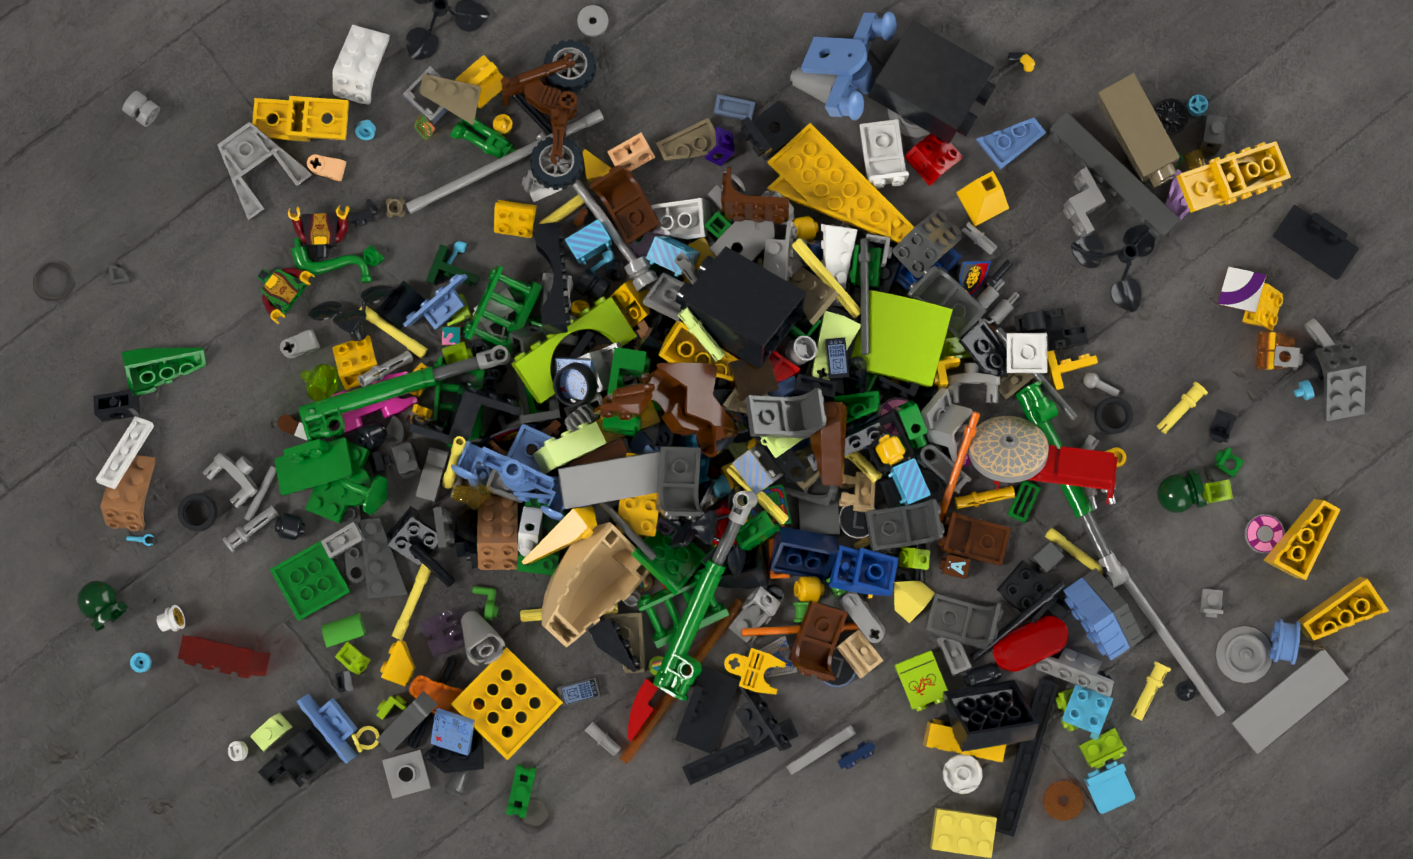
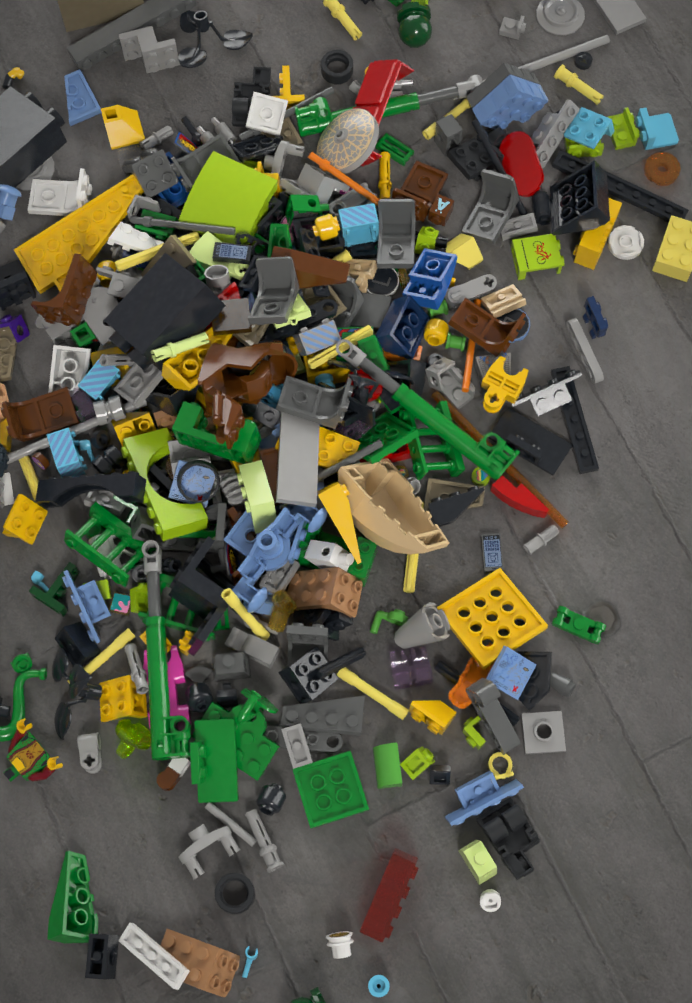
camera: 80 degrees left, 15 degrees down
(932, 158) = (73, 158): red bracket -> none
(1092, 380) = (304, 76): light grey bar -> none

